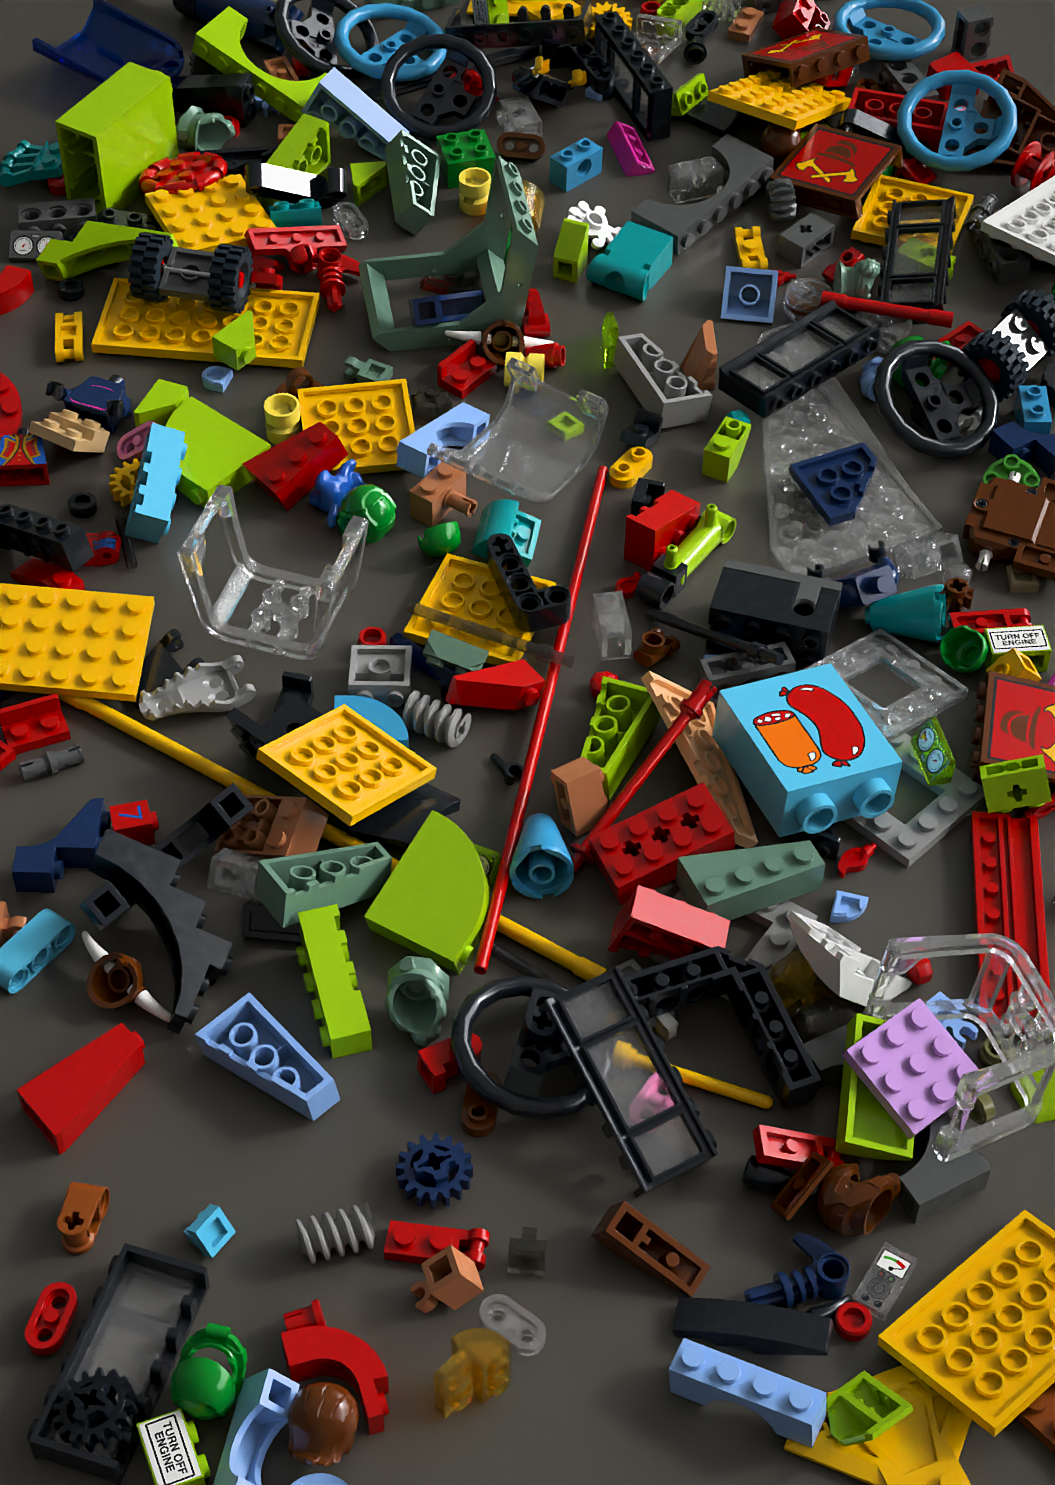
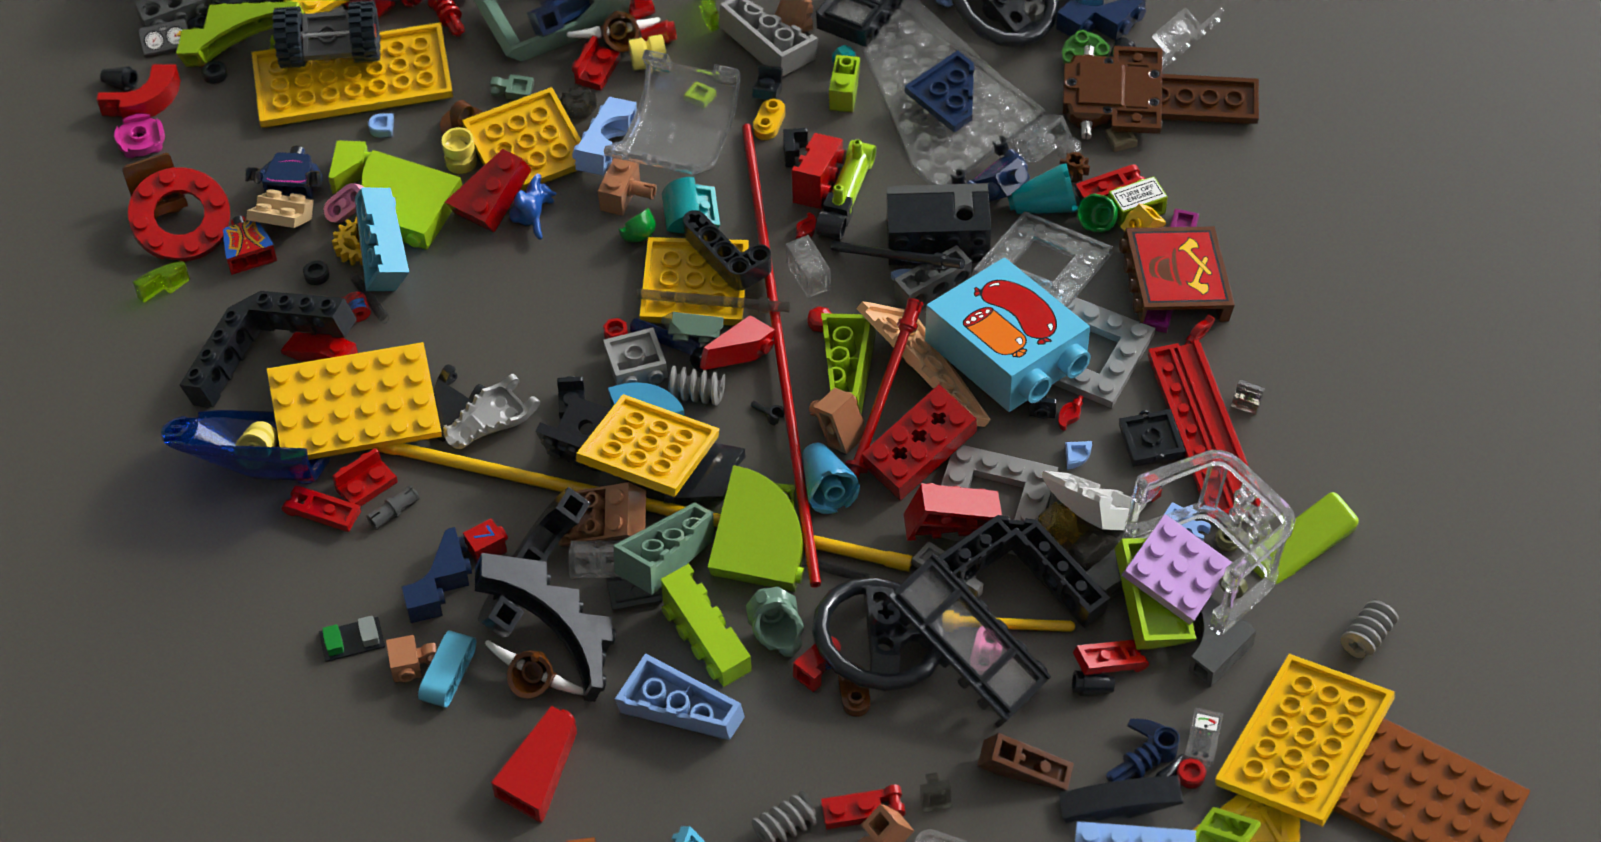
camera: 15 degrees left, 5 degrees up
(69, 335) = (234, 117): yellow plate -> none
(236, 342) = (391, 89): lime slope -> none
(267, 279) = (391, 21): red bracket -> none
(328, 591) = (477, 342): clear windscreen -> none
(372, 504) = (571, 218): green helmet -> none
(436, 1167) = (840, 751): dark blue gear -> none
(654, 647) = (849, 275): reddish brown plate -> none
(749, 878) = (997, 453): sand green wedge -> none
(801, 1185) = (1122, 683): reddish brown slope -> none
(854, 1205) = (1160, 687): reddish brown helmet -> none
(933, 753) = (1104, 308): slope -> none
(941, 909) = (1151, 437): none -> black plate
(1027, 773) = (1177, 318): lime brick -> none

